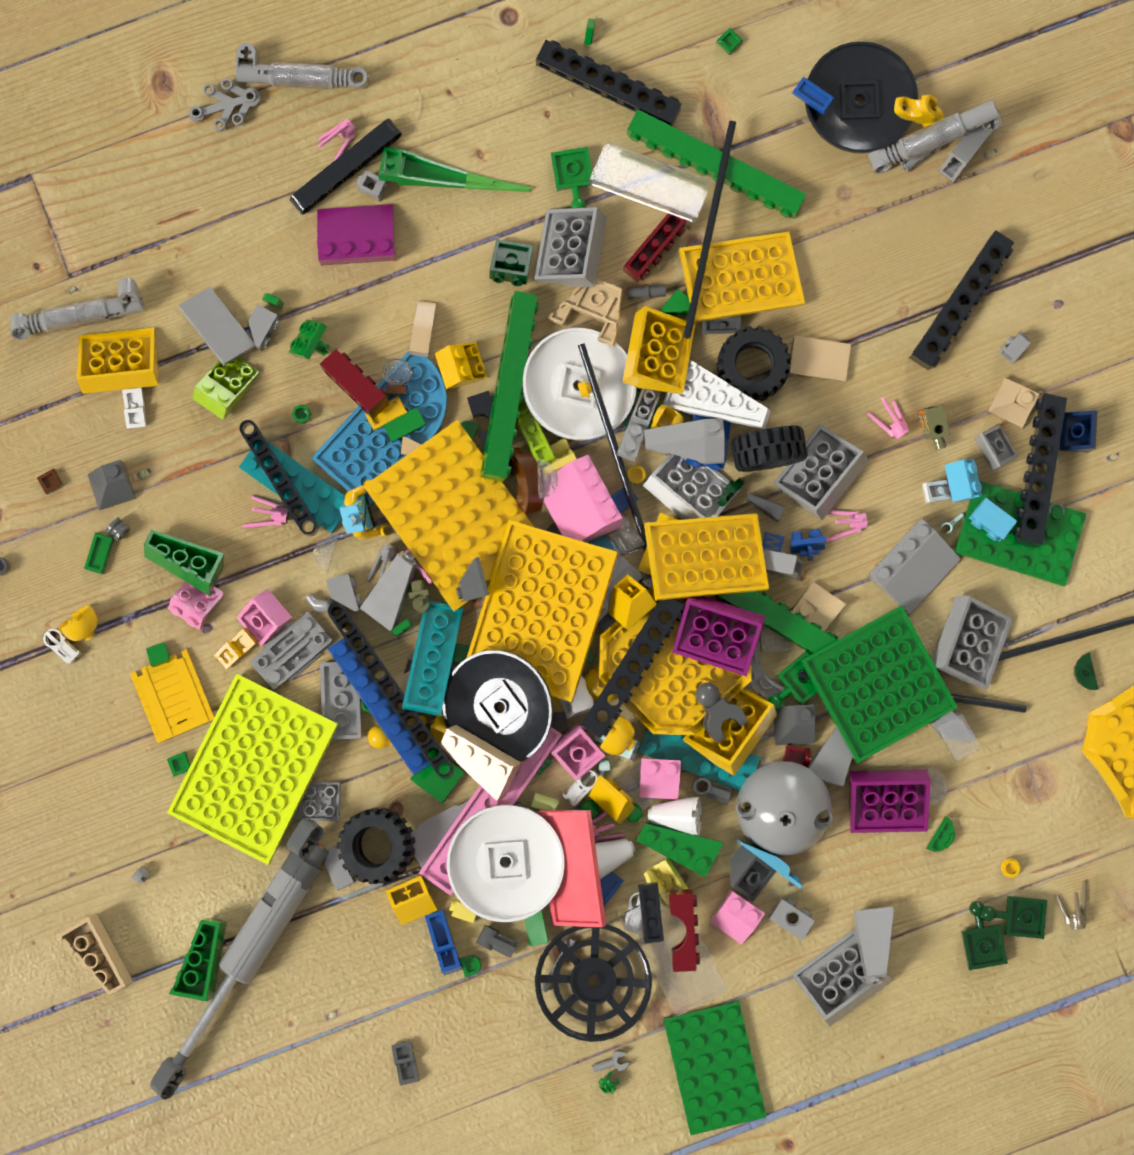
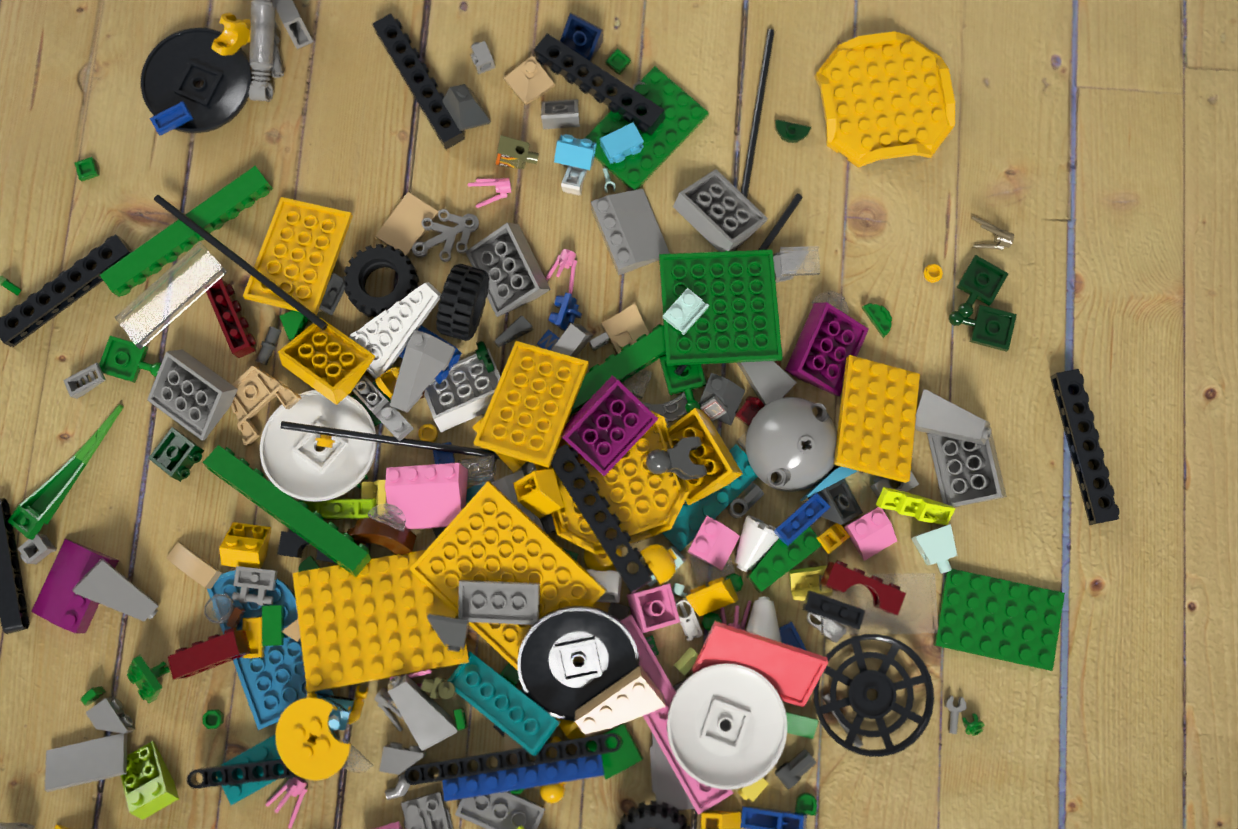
camera: 65 degrees left, 5 degrees down
(322, 508) = (307, 741): none -> yellow piece
(369, 275) = (114, 590): none -> light grey slope
(436, 388) = (257, 579): none -> light grey plate
(517, 613) = (499, 602): none -> light grey plate
(525, 139) = (71, 381): none -> light grey slope
(715, 883) = (833, 537): none -> yellow slope
(718, 847) = (802, 519): none -> blue plate
(752, 982) = (937, 547): none -> light aqua torso
(780, 946) = (915, 506): none -> neon yellow slope
(782, 722) = (713, 408): none -> light grey tile
(794, 588) = (599, 341): none -> light grey tile
(829, 401) = (448, 234): none -> light grey plant
(844, 875) = (877, 419): none -> yellow plate
(858, 654) = (685, 311): none -> light aqua plate
(900, 1079) = (1080, 456): none -> black brick
(955, 358) = (465, 108): none -> dark grey slope
(1074, 476) = (618, 61): none -> green tile

